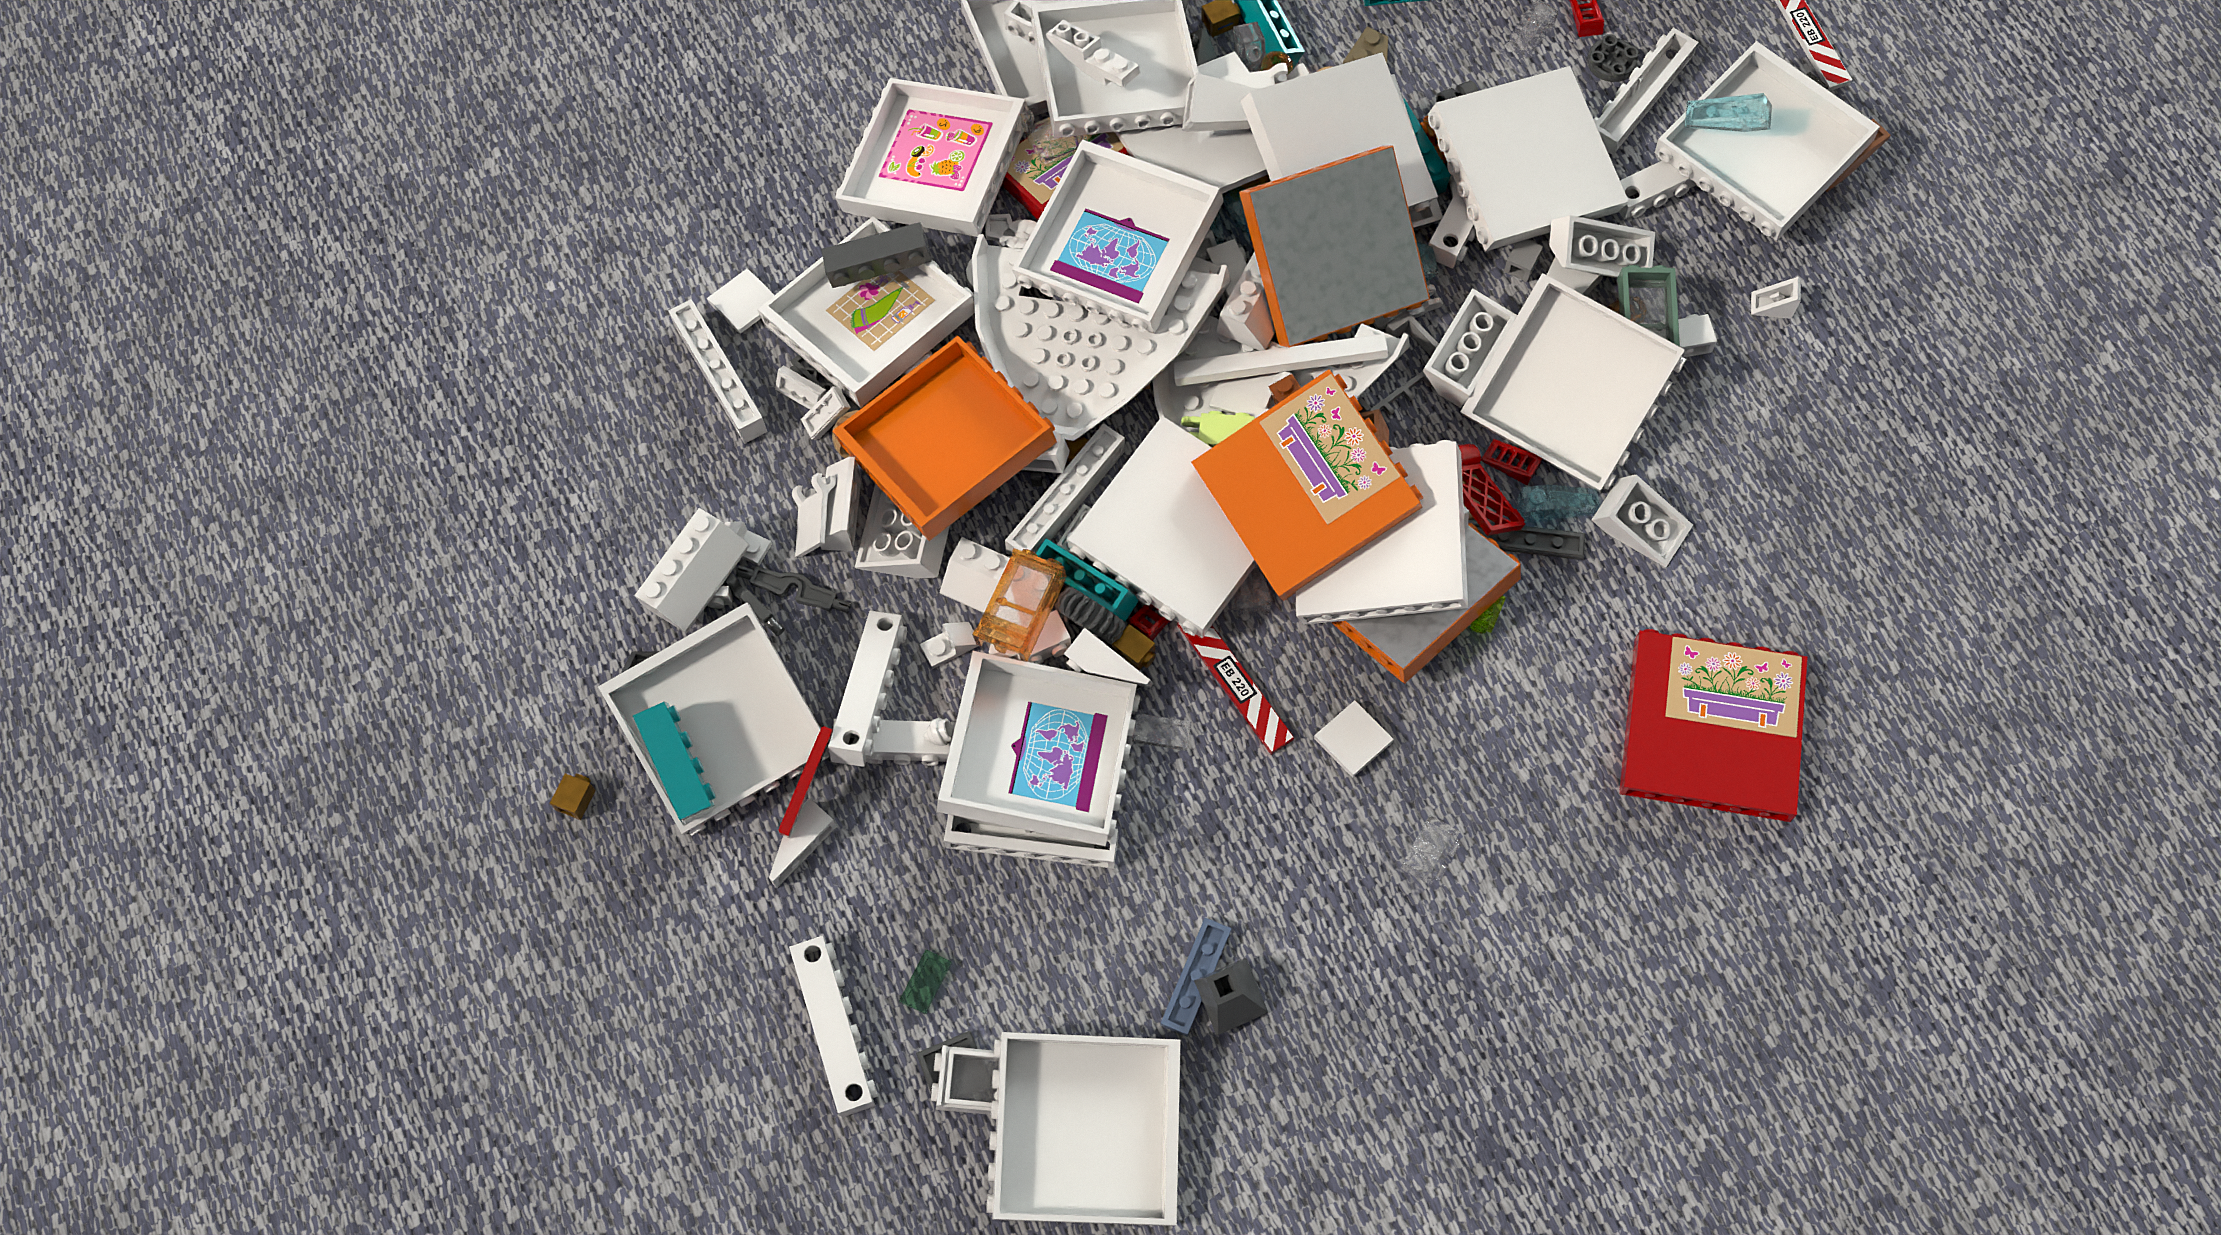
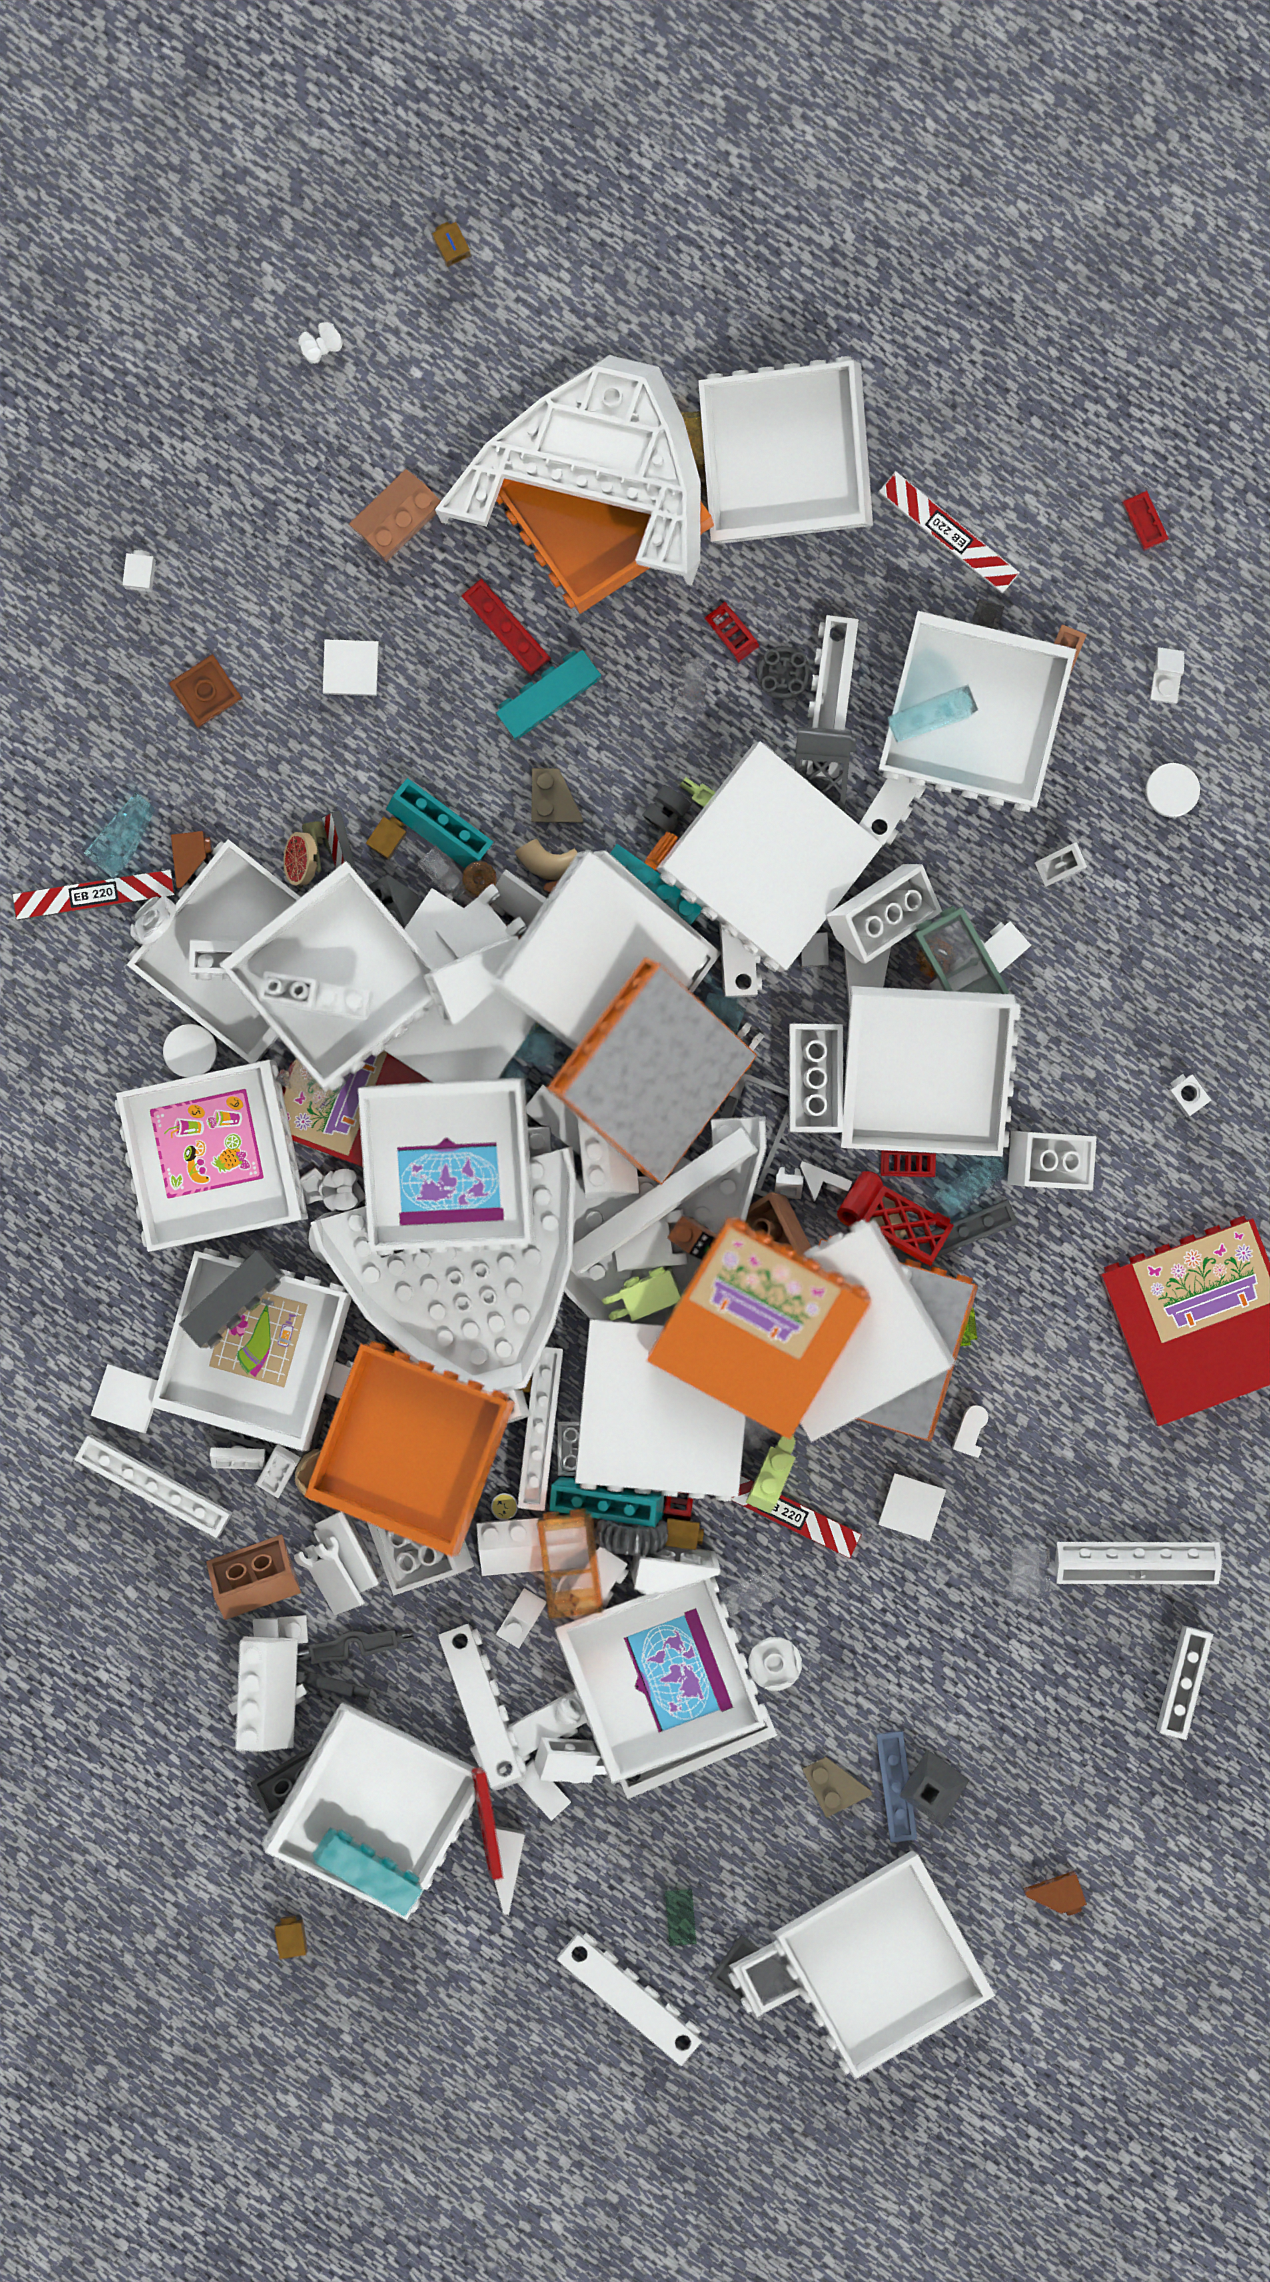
camera: 35 degrees left, 20 degrees up
(747, 487) = (253, 1577): none -> nougat slope
(874, 795) = (543, 1793): none -> white slope
(912, 778) = (568, 1760): none -> white hinge
(969, 77) = (190, 1050): none -> white tile
(995, 542) = (504, 1506): none -> light yellow tile
(1138, 945) = (834, 1786): none -> dark tan wing
(1143, 812) = (775, 1653): none -> white tile
(1243, 639) = (772, 1475): none -> yellowish green hinge
(1294, 1166) = (1059, 1893): none -> dark orange slope
(1397, 422) = (789, 1184): none -> white tile
(1427, 428) = (816, 1176): none -> white slope
(1449, 696) = (973, 1420): none -> white leg
(1526, 1032) = (1184, 1682): none -> white brick
(1540, 899) = (1138, 1563): none -> white piece
(1622, 109) = (826, 746): none -> dark grey piece
(1796, 541) = (1200, 1096): none -> white brick
(1904, 293) = (1172, 790): none -> white tile
(1941, 211) = (1167, 675): none -> white slope
(1980, 93) = (1145, 520): none -> red plate

